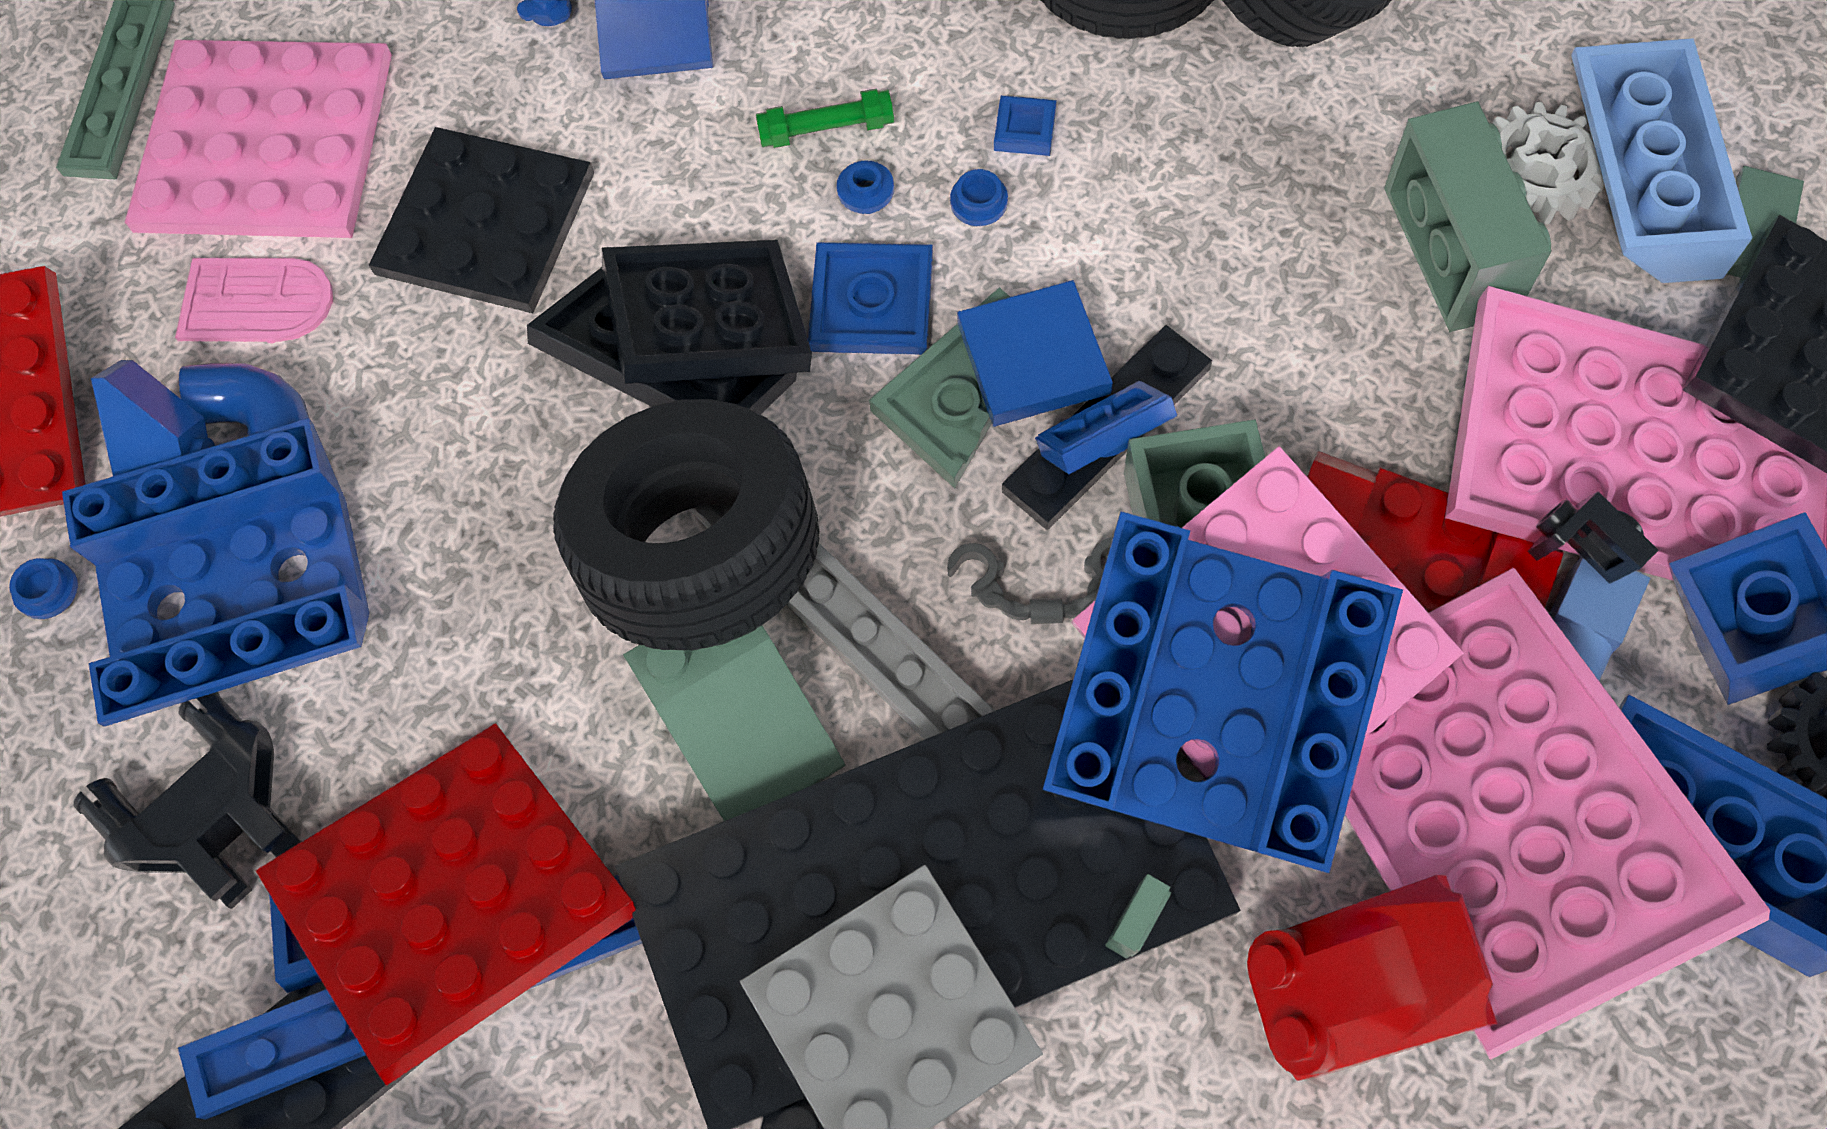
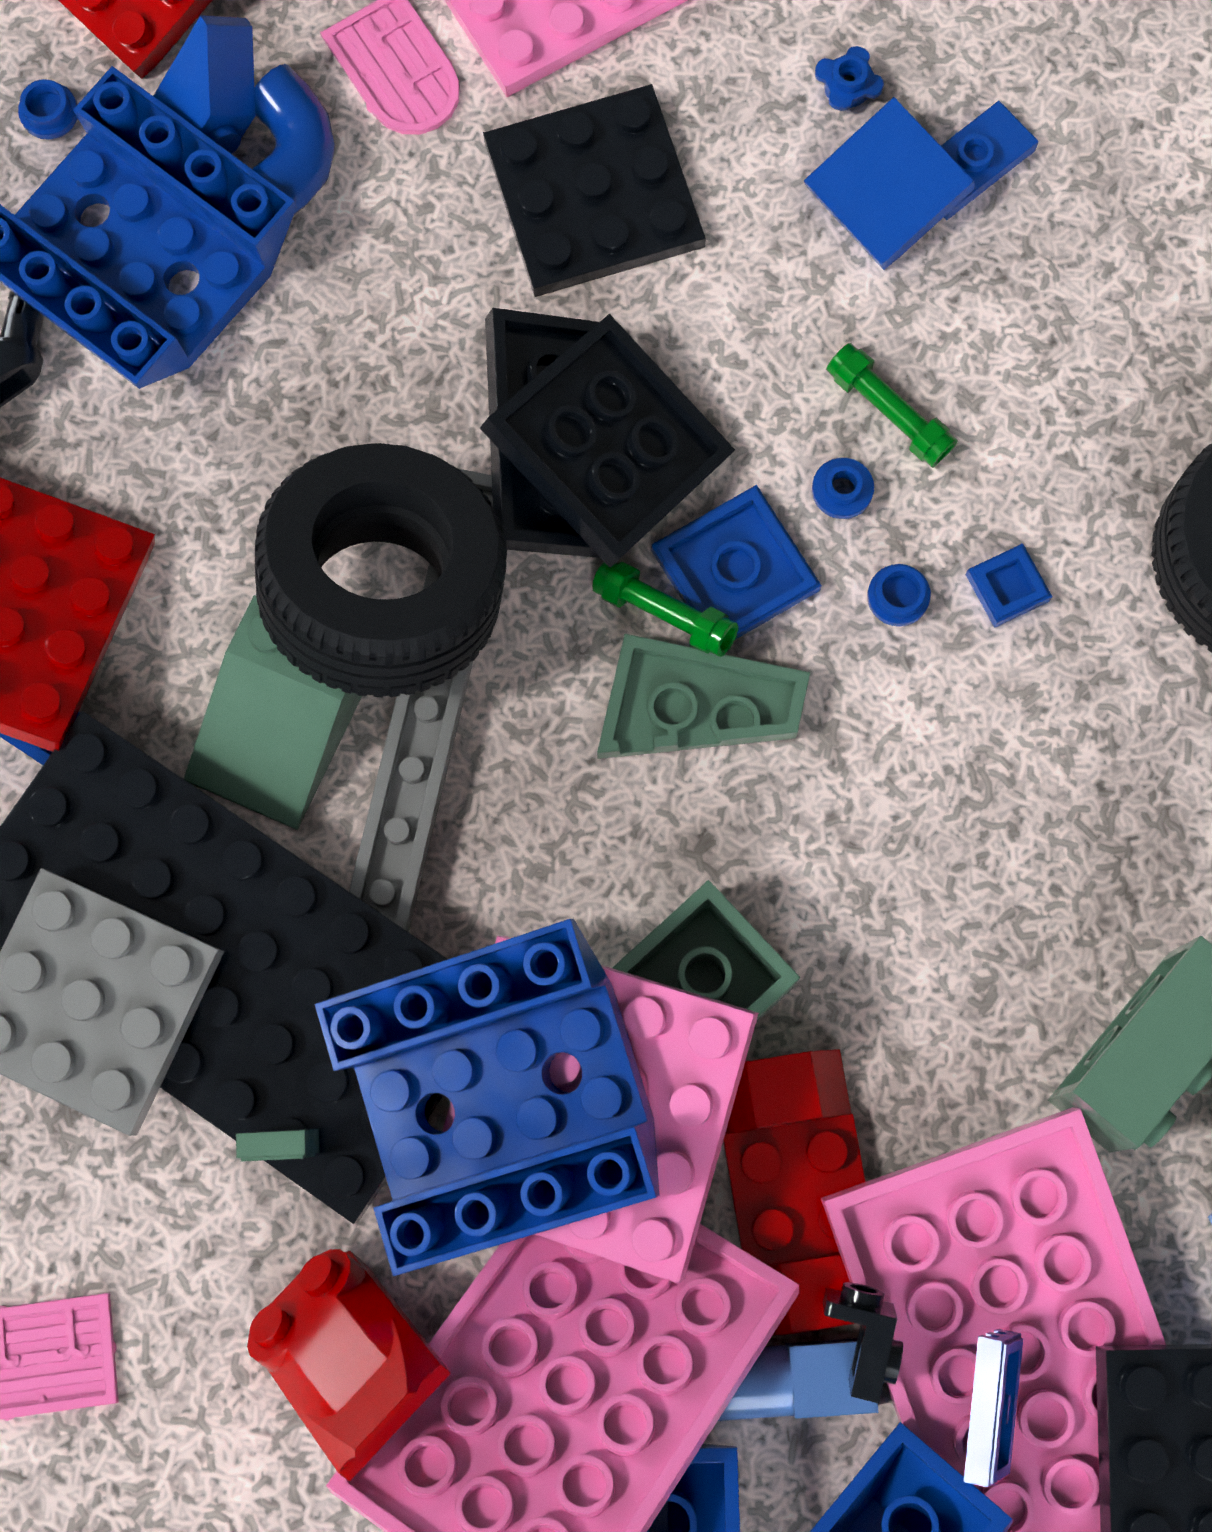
camera: 55 degrees right, 10 degrees up
(823, 384) = (709, 630): none -> green bar
(1034, 353) = (757, 744): blue tile -> none
(1040, 610) = (530, 901): dark grey piece -> none
(1047, 491) = (743, 851): black plate -> none
(1105, 427) = (717, 851): blue plate -> none
(1700, 480) = (993, 1407): none -> tile

